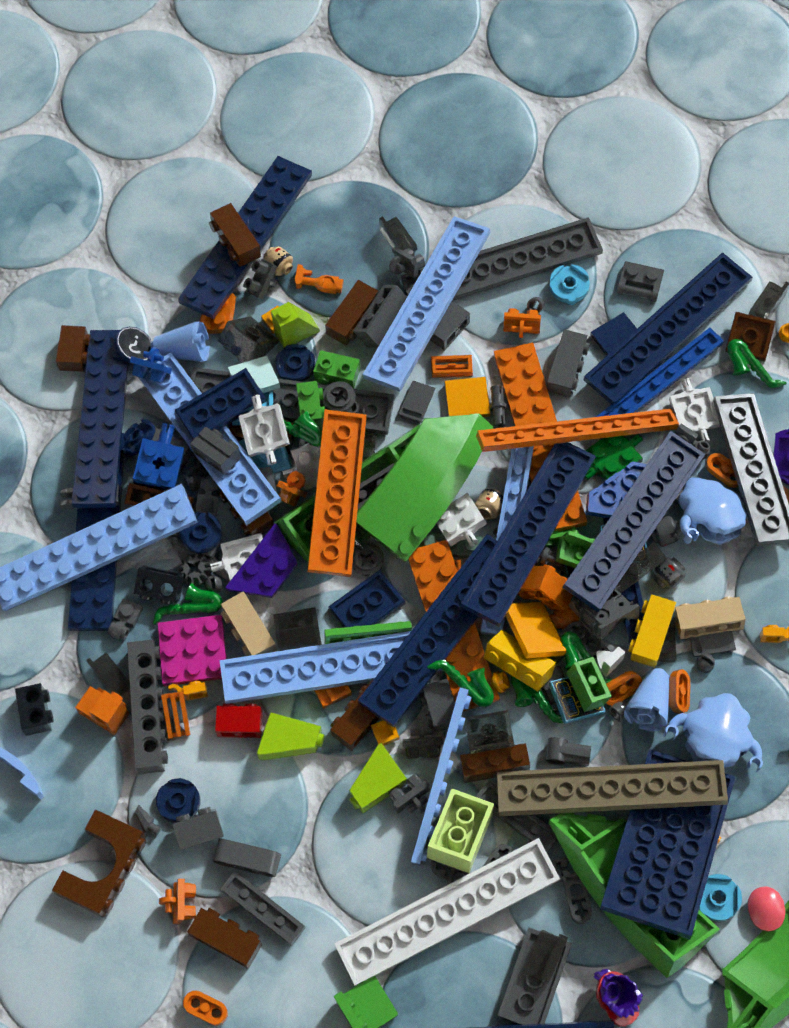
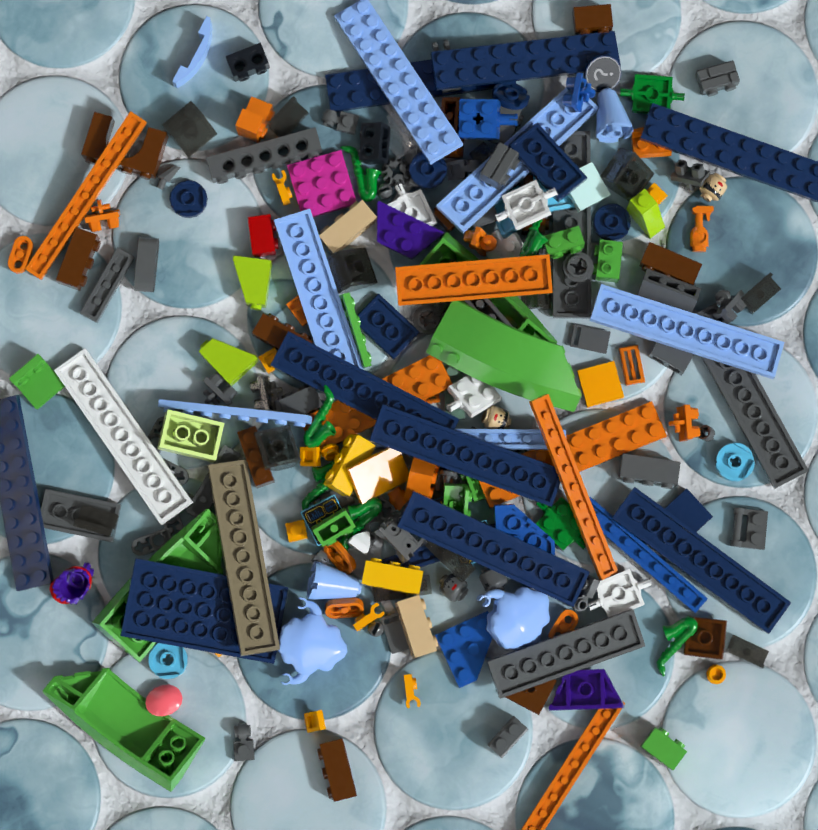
camera: 80 degrees right, 15 degrees up
(97, 785) = (189, 129): none -> clear smoke slope
(152, 914) = (86, 195): none -> orange plate
(163, 241) = (717, 78): none -> dark grey brick
(163, 305) = (649, 90): none -> green plate
(178, 733) = (246, 187): orange tile -> none
(197, 828) = (164, 219): dark grey brick -> none
(234, 235) = (725, 140): reddish brown brick -> none
(498, 406) = (595, 413): dark grey pin -> none
(502, 702) = (310, 456): none -> light orange plate
(562, 752) = (275, 512): dark grey piece -> none
(585, 733) = (296, 531): none -> light orange plate
(696, 670) = (362, 620): none -> light orange plate
(736, 571) = (466, 648): none -> blue plate

